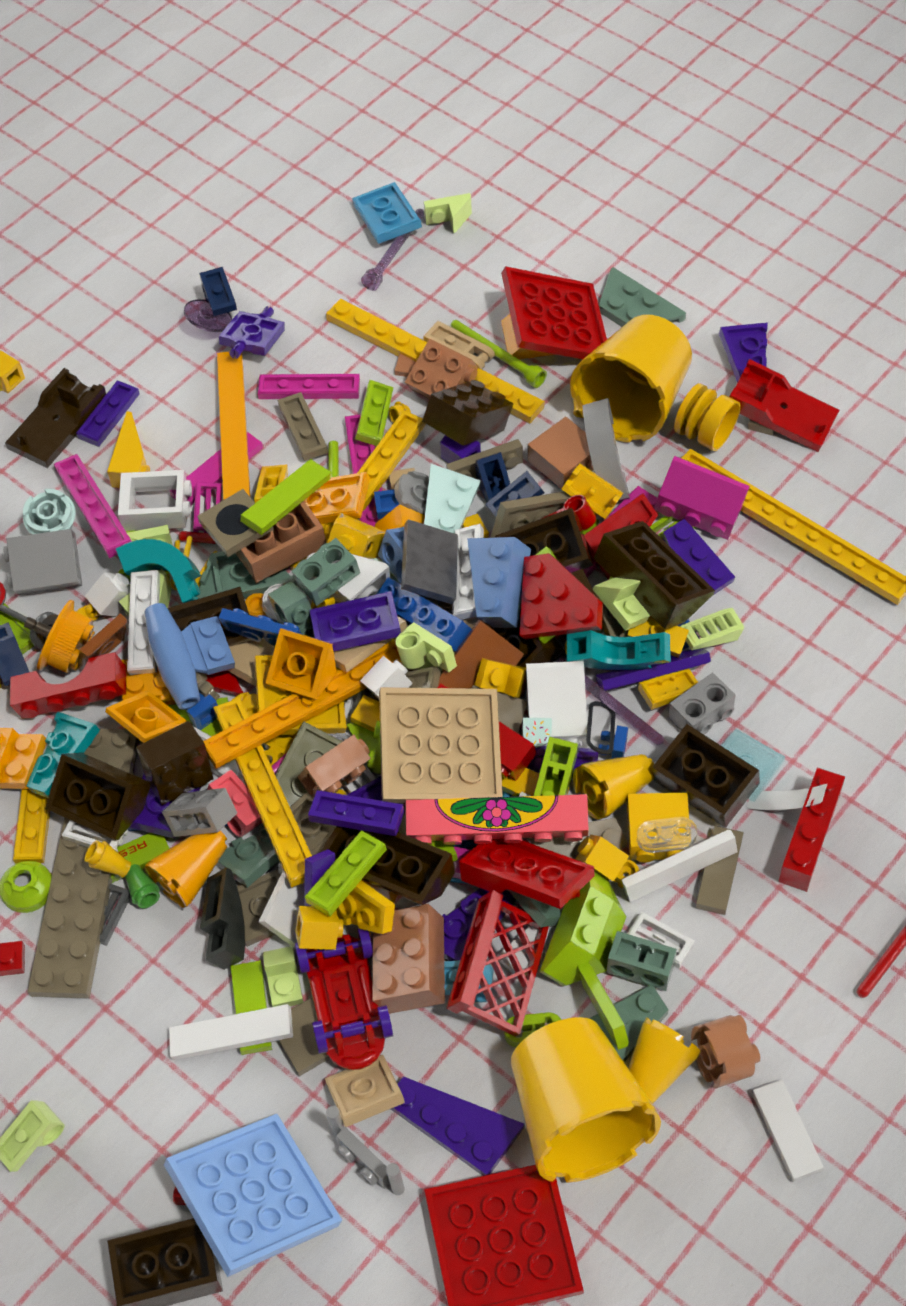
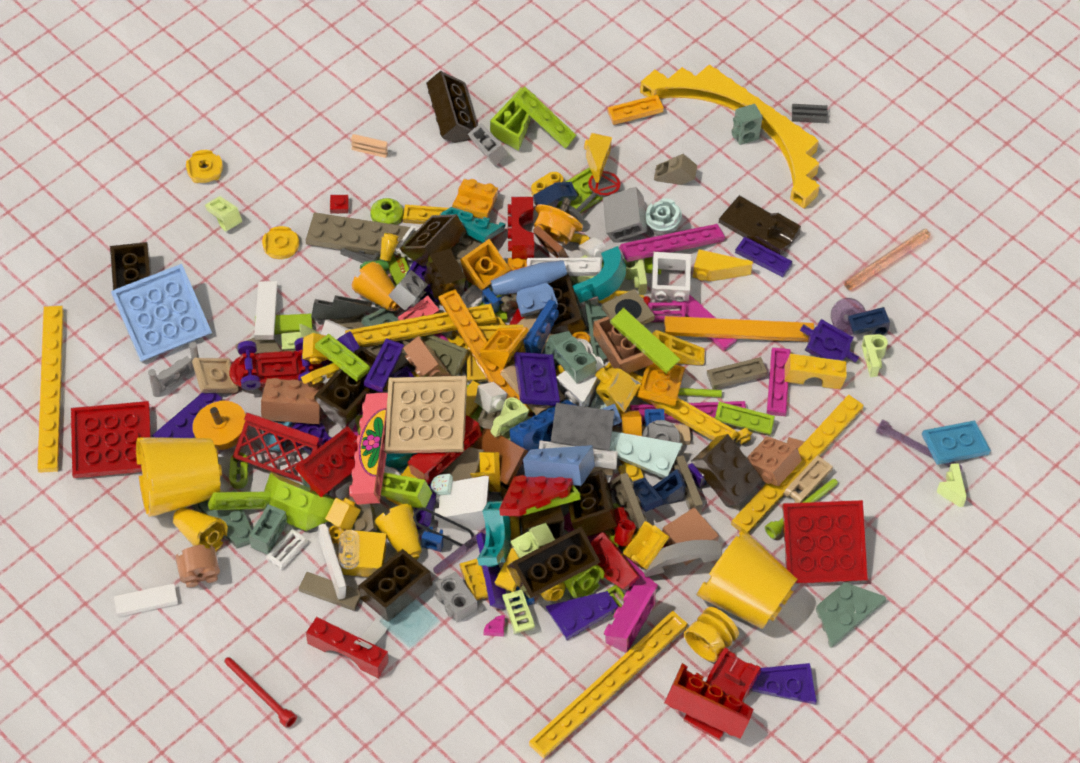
camera: 90 degrees right, 0 degrees up
(86, 1038) = (280, 242): none -> yellow tile
(112, 287) = (887, 259): none -> clear orange axle
(261, 294) = (874, 349): none -> yellowish green plate
(298, 341) = (802, 367): none -> yellow arch
(466, 1058) = (220, 422): none -> light orange piece
(732, 660) = (495, 627): none -> dark pink tile
(809, 409) = (708, 703): none -> red wedge

